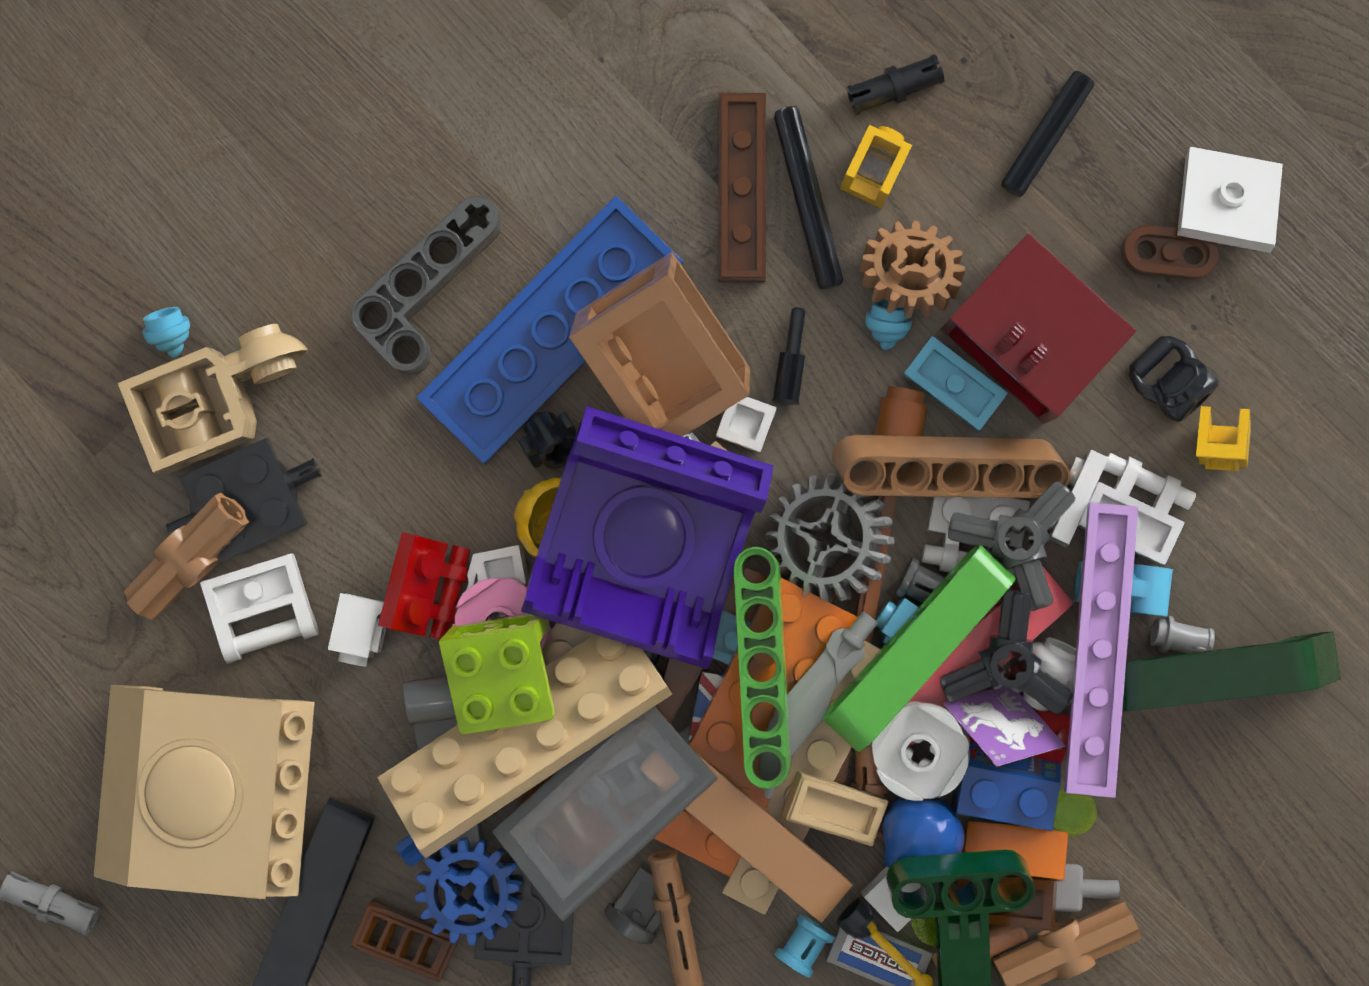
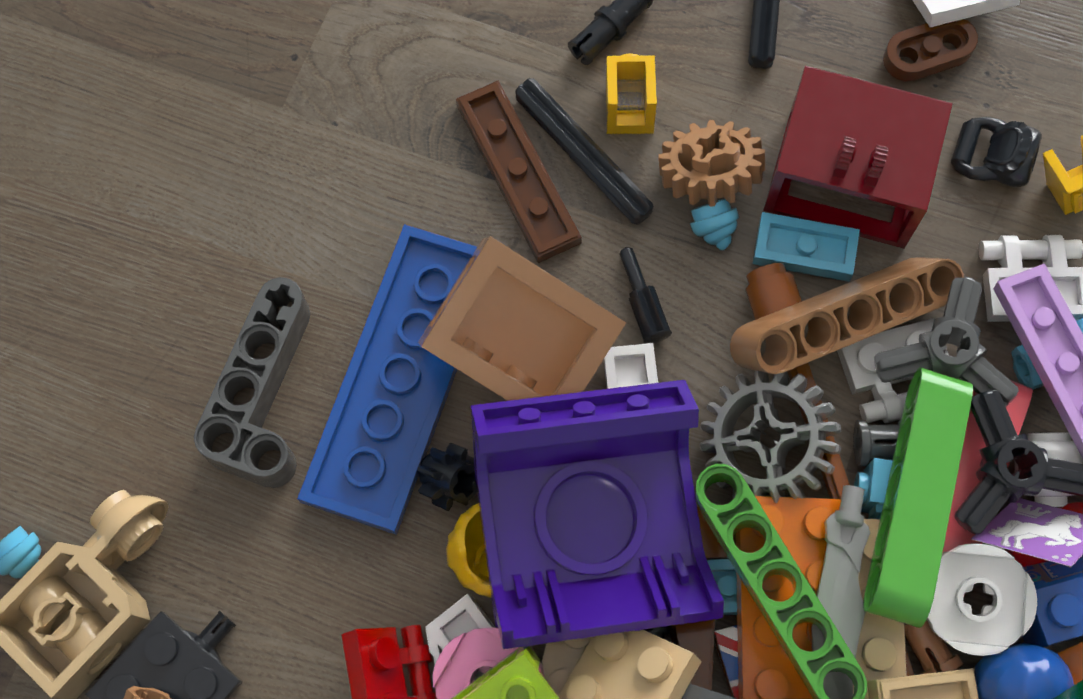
camera: 20 degrees left, 15 degrees down
(1083, 479) = (976, 264): white plate -> none

